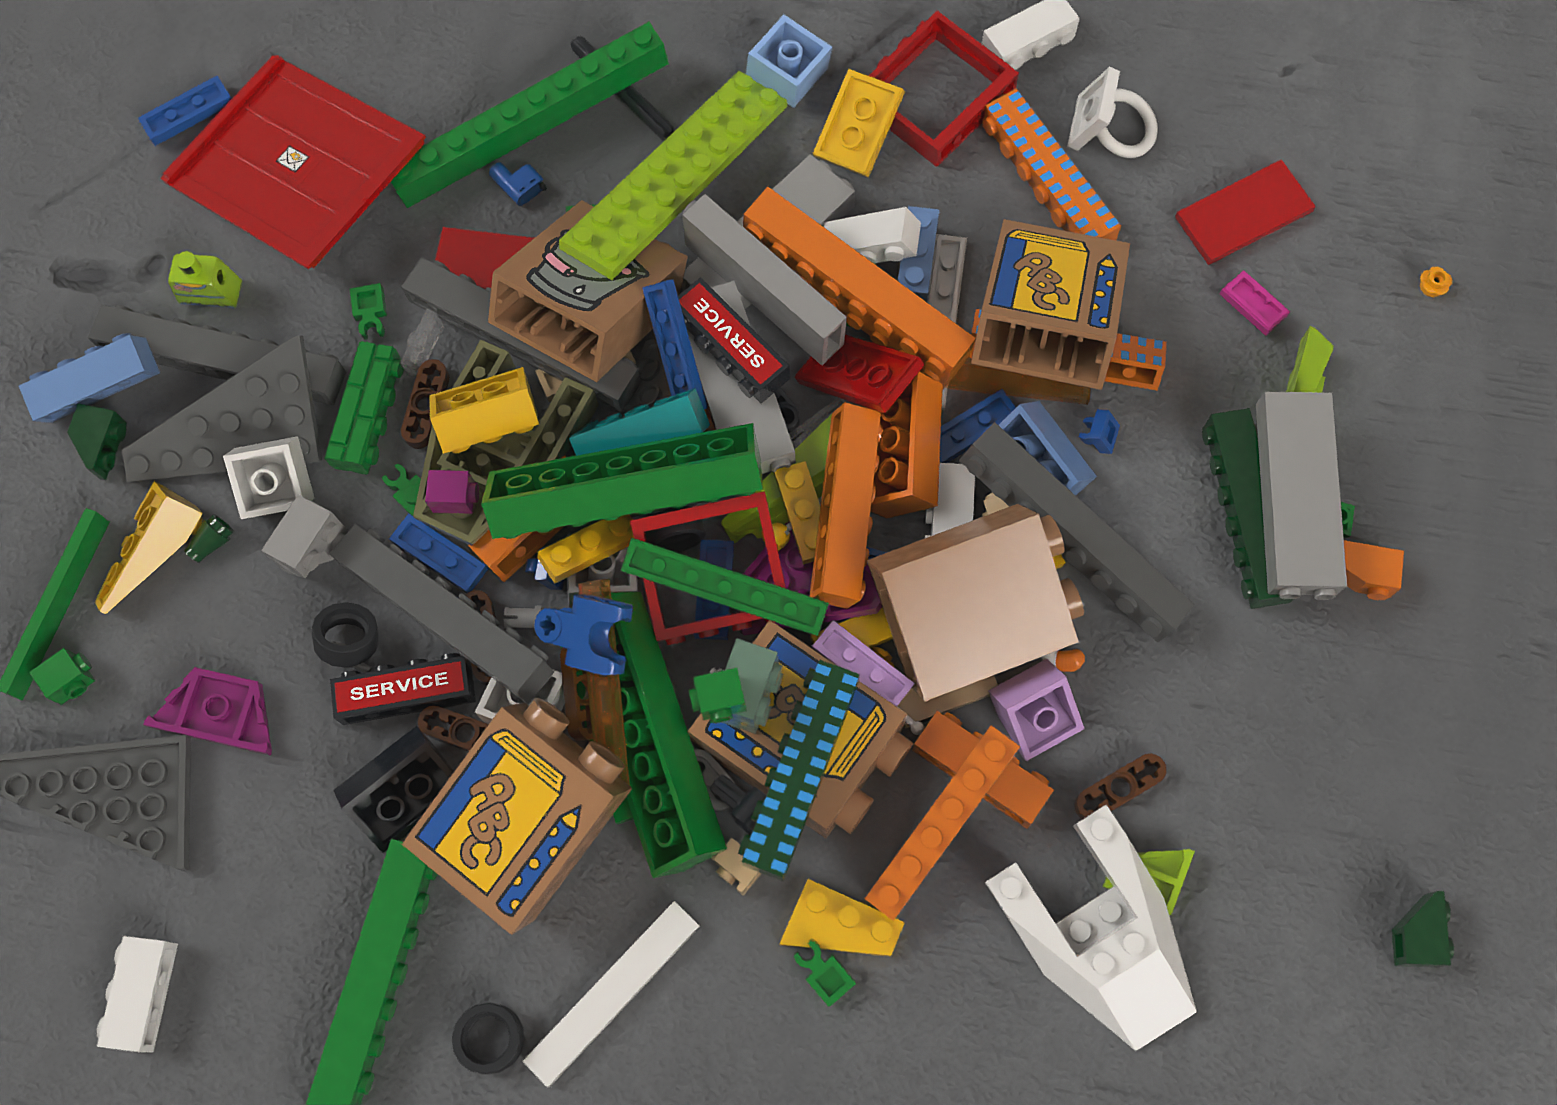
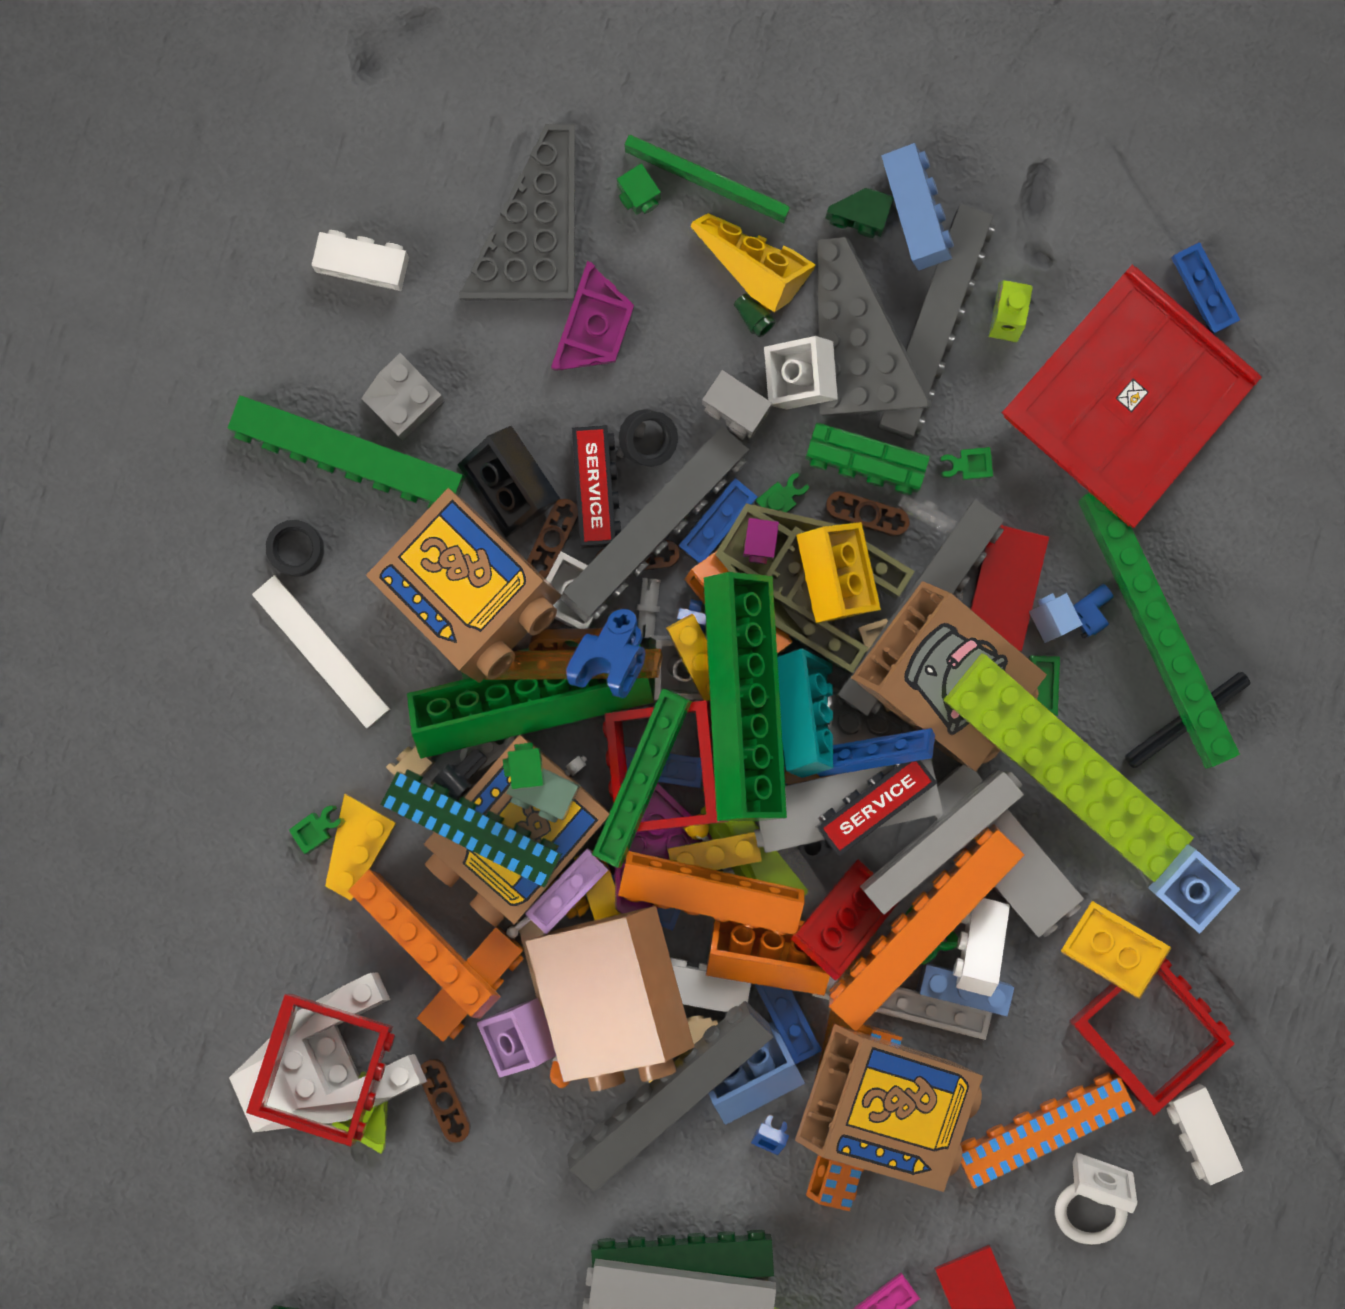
camera: 90 degrees right, 15 degrees up
(301, 924) = (402, 397): none -> light grey slope
(524, 210) = (1055, 617): none -> light blue brick
(1134, 864) = (273, 1056): none -> red window

